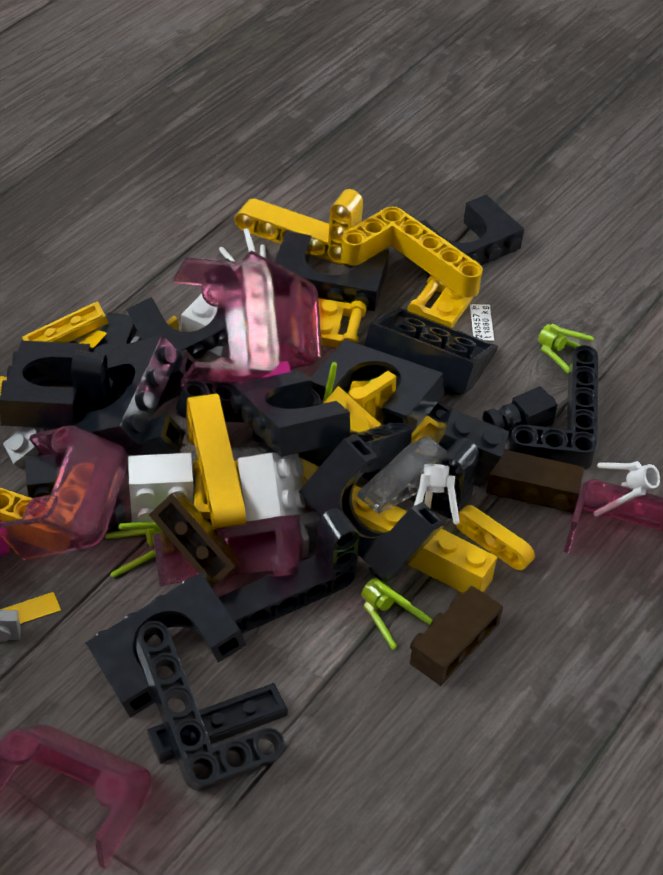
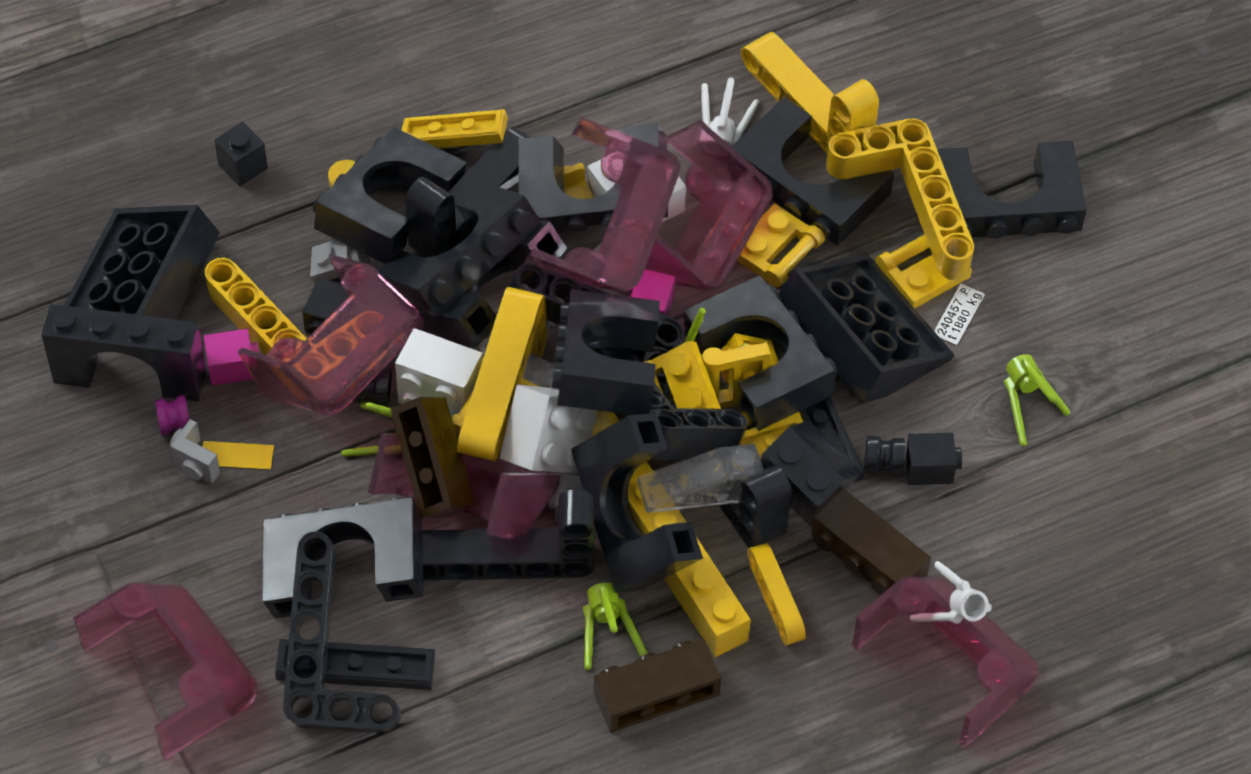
camera: 30 degrees right, 10 degrees up
(91, 338) = (475, 154): yellow sticker -> none
(434, 480) = (723, 502): white plant -> none
(580, 440) = (975, 490): black beam -> none

